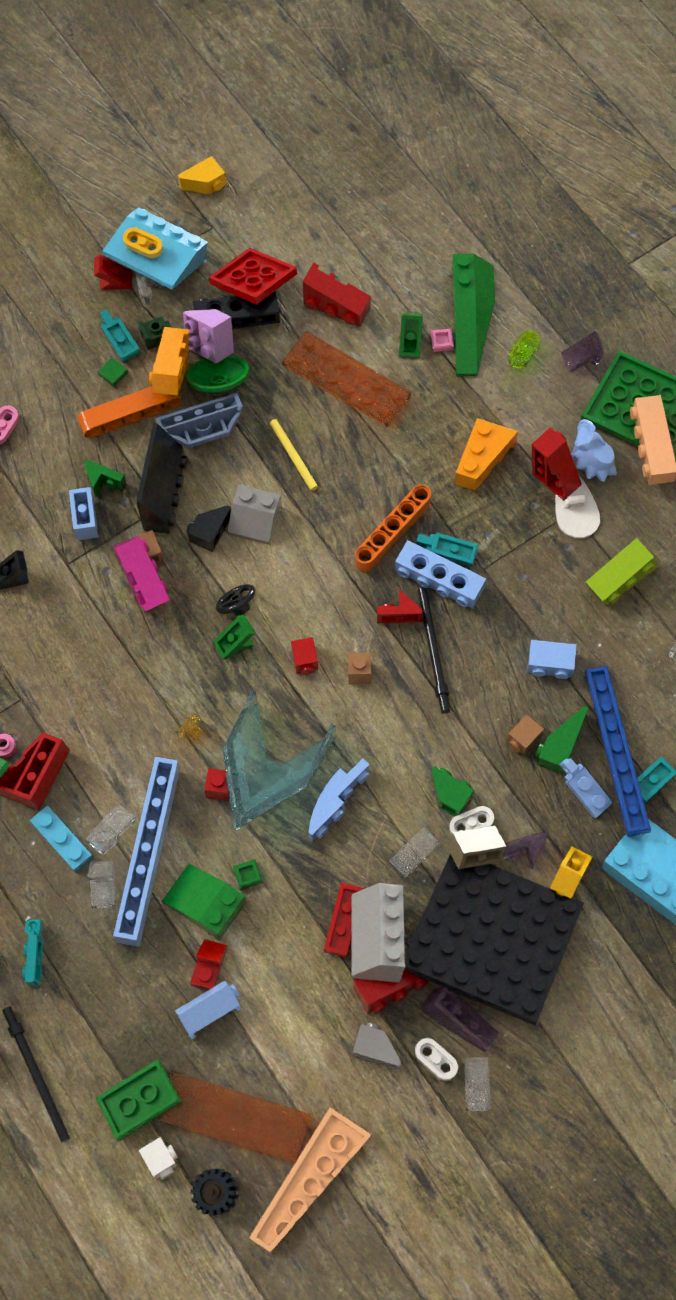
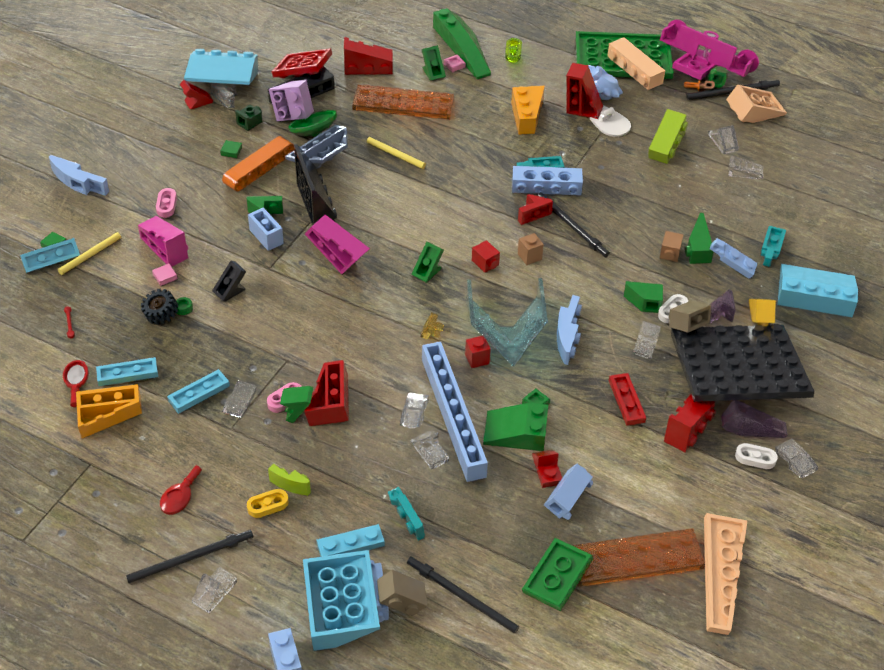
camera: 30 degrees left, 20 degrees down
(61, 838) = (377, 433): medium azure plate -> none
(119, 337) = (223, 127): teal hinge -> none
(144, 244) = (213, 61): yellow plate -> none
(159, 1158) = (600, 606): white brick -> none
(171, 362) = (276, 121): light orange wedge -> none
(203, 178) = (228, 27): yellow slope -> none
(209, 527) = (364, 209): black slope -> none
(214, 1192) = (660, 608): black wheel -> none
(237, 603) = (414, 241): black piece -> none
(254, 514) = (392, 190): light grey slope -> none
(375, 1047) = (710, 465): light grey slope -> none
(378, 933) = (665, 385): light grey slope -> none
(390, 537) = (495, 167): orange beam -> none
(551, 659) = (656, 199): light blue brick -> none
(586, 350) = (557, 35): slope -> none
(617, 751) = (740, 232): blue tile -> none

